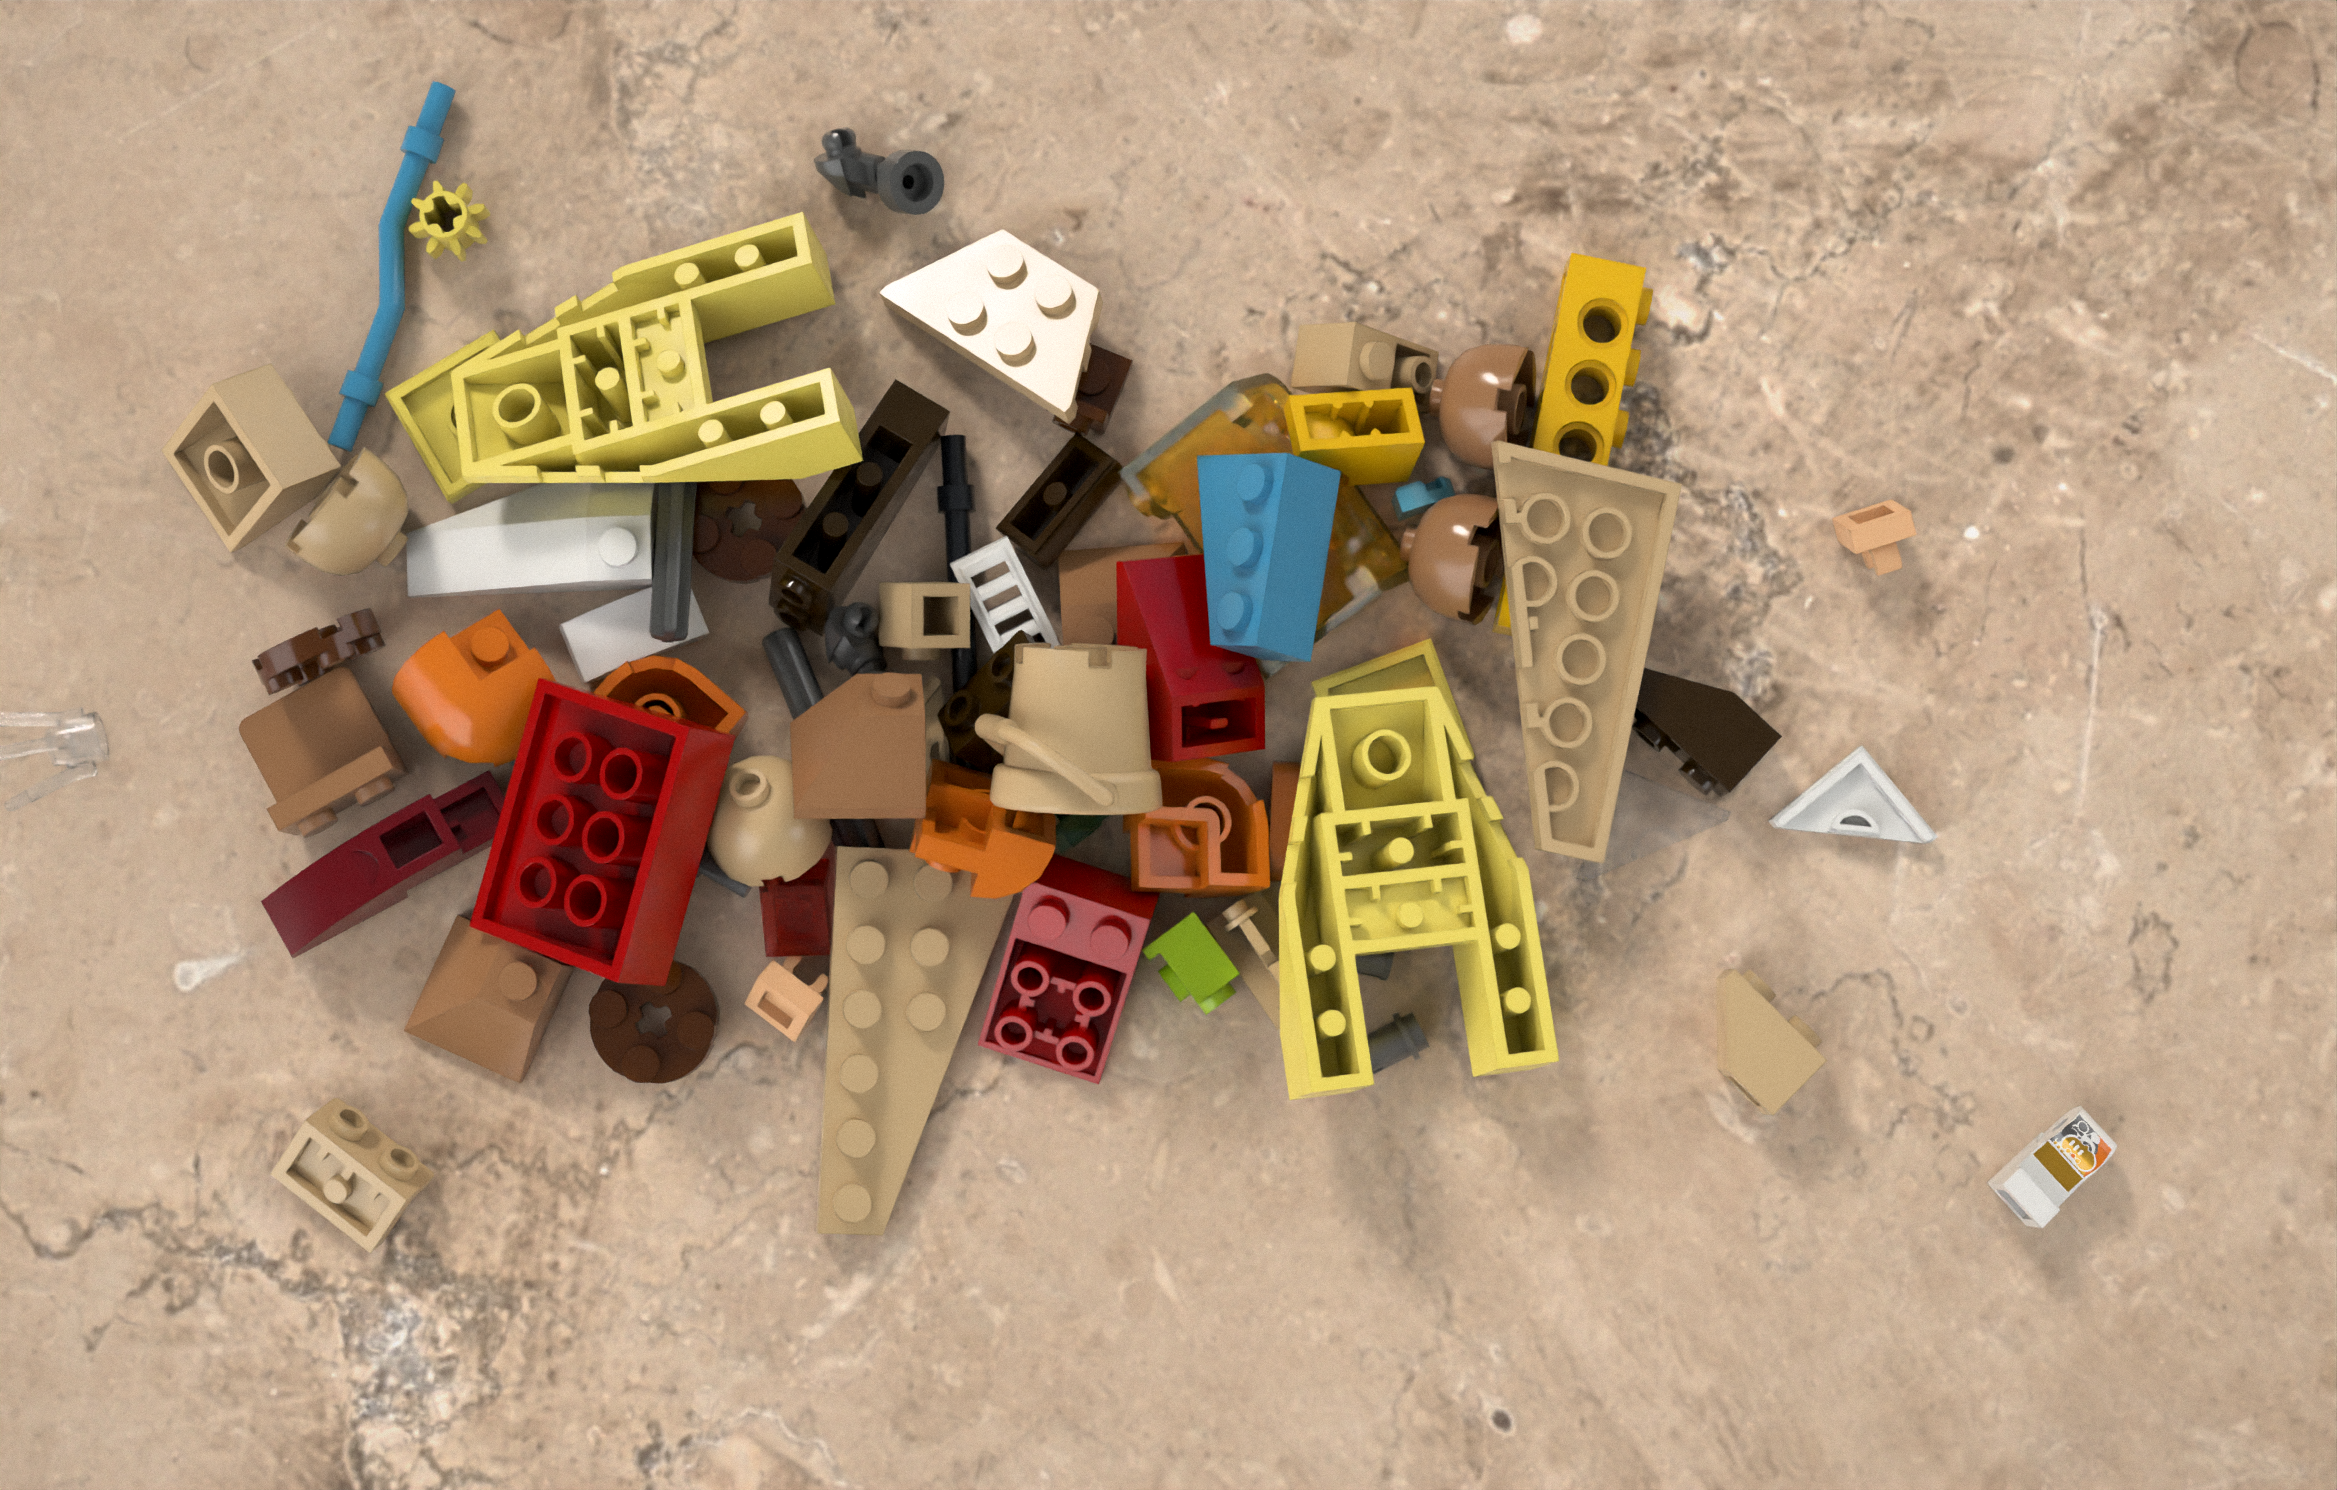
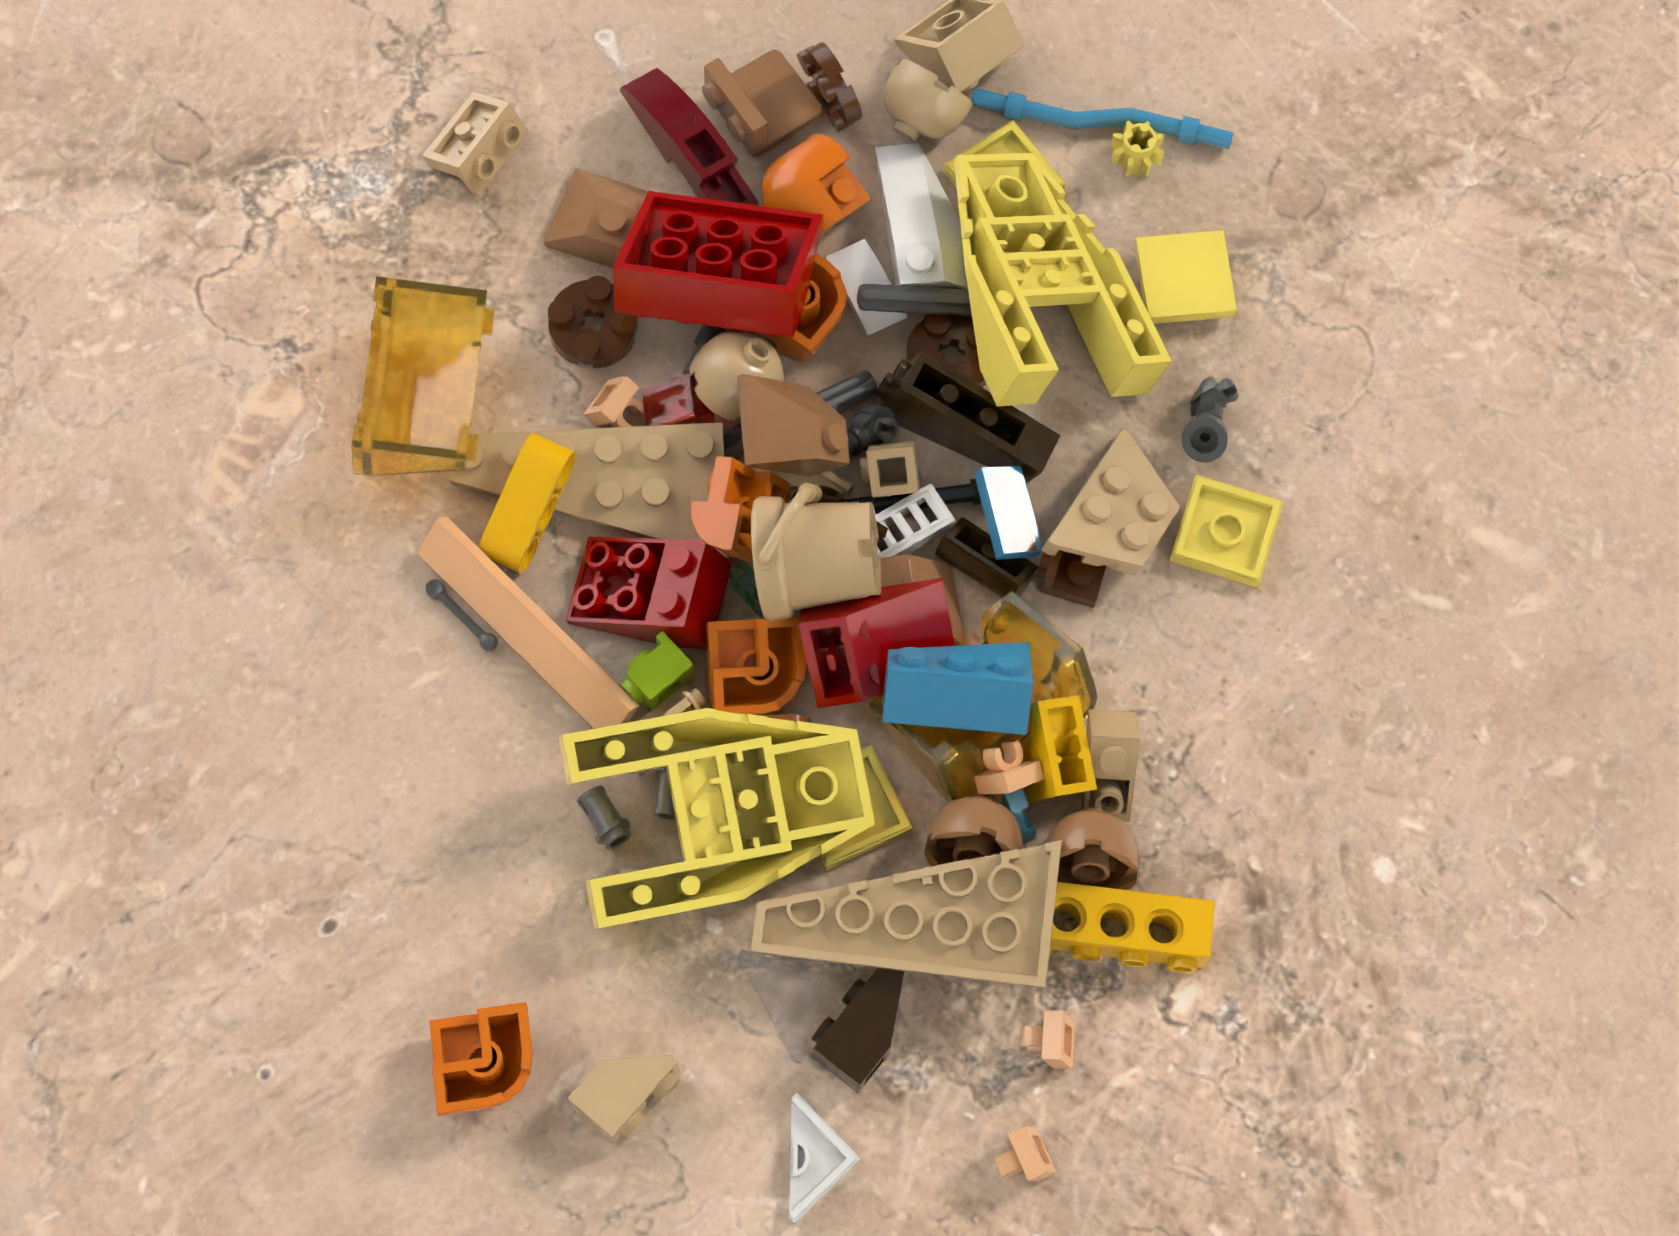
camera: 80 degrees right, 15 degrees down
(656, 178) = (1185, 276): none -> light yellow tile
(743, 1265) = (420, 379): none -> clear yellow windscreen
(936, 1126) = (527, 502): none -> yellow beam
(1002, 463) = (1008, 512): none -> tile
(1038, 171) = (1226, 531): none -> light yellow tile
(1039, 1259) = (436, 590): none -> dark grey hinge
(1111, 1137) = (525, 626): none -> light nougat tile
(1383, 501) = (1008, 773): none -> light nougat tile
(1712, 1226) = (480, 1058): none -> orange brick
(1728, 483) = (1053, 1040): none -> light nougat tile

